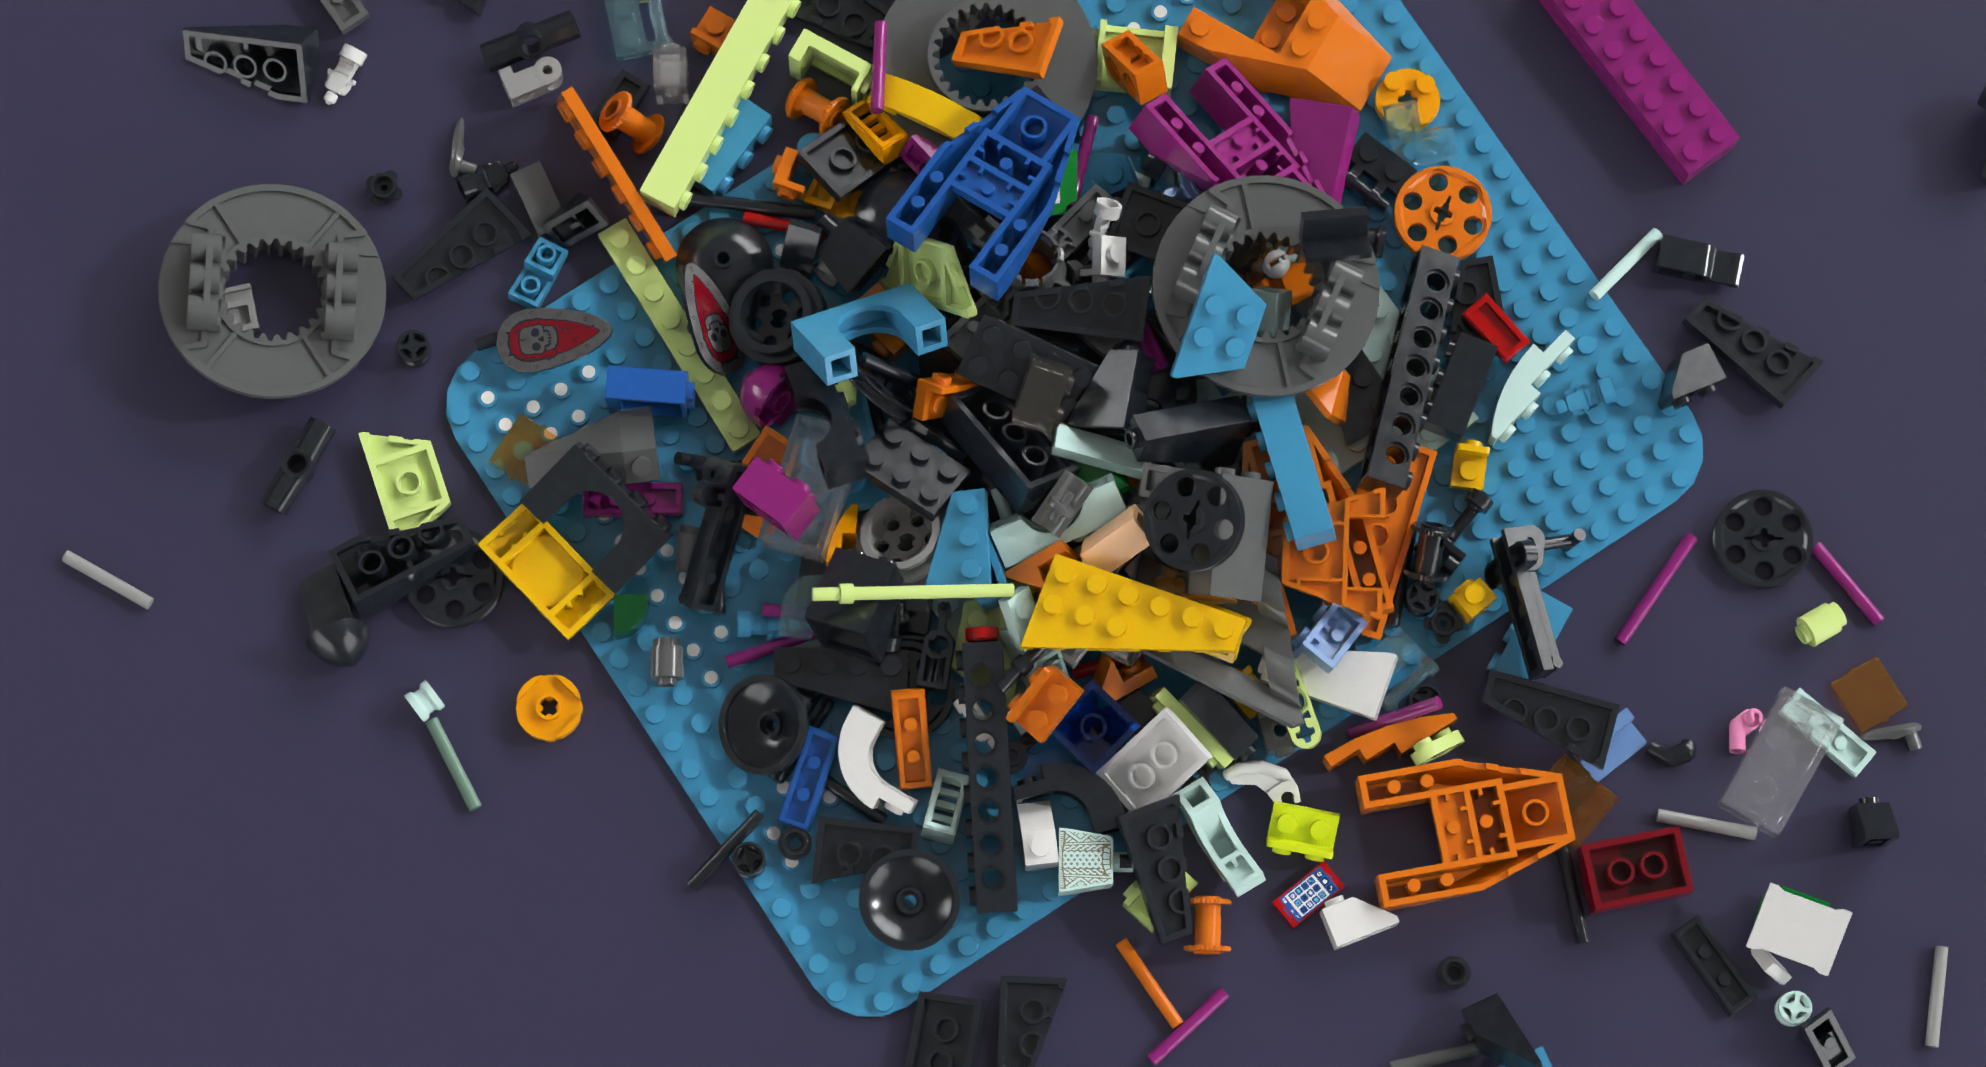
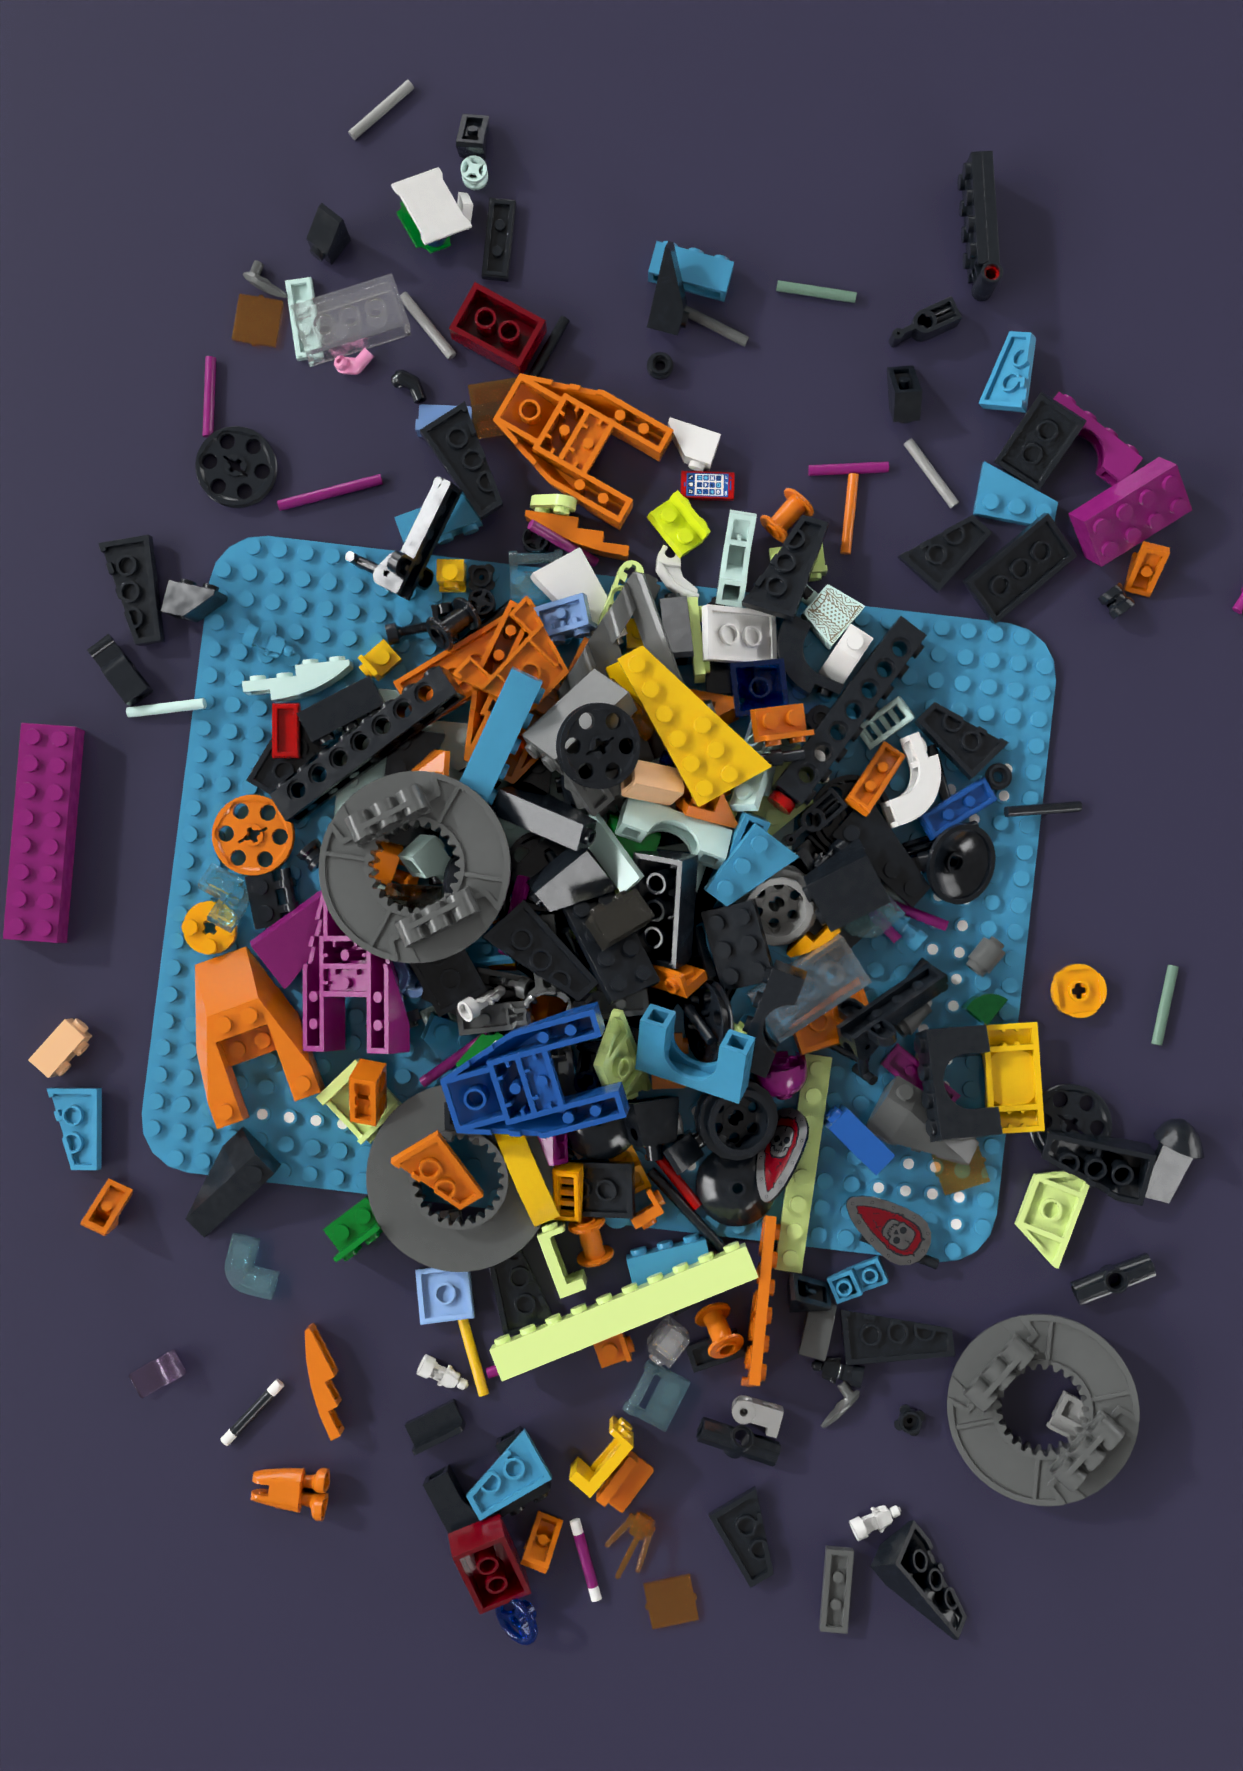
camera: 135 degrees left, 10 degrees up
(412, 341) = (982, 1299): black wheel -> none
(424, 701) = (1153, 1059): light aqua wheel -> none
(748, 854) = (1041, 786): black wheel -> none
(776, 498) = (845, 993): magenta brick -> none
(847, 593) = (856, 889): yellowish green bar -> none
(878, 67) = (534, 1230): magenta bar -> none
(916, 875) = (975, 669): black dish -> none
(1062, 503) = (666, 836): dark grey hips -> none
(1107, 258) = (497, 976): white bracket -> none
(1220, 324) = (470, 860): dark azure wing -> none
(1279, 269) = (393, 879): light grey hinge -> none
(1335, 234) = (342, 858): black panel -> none
(1820, 624) = (248, 384): yellowish green brick -> none

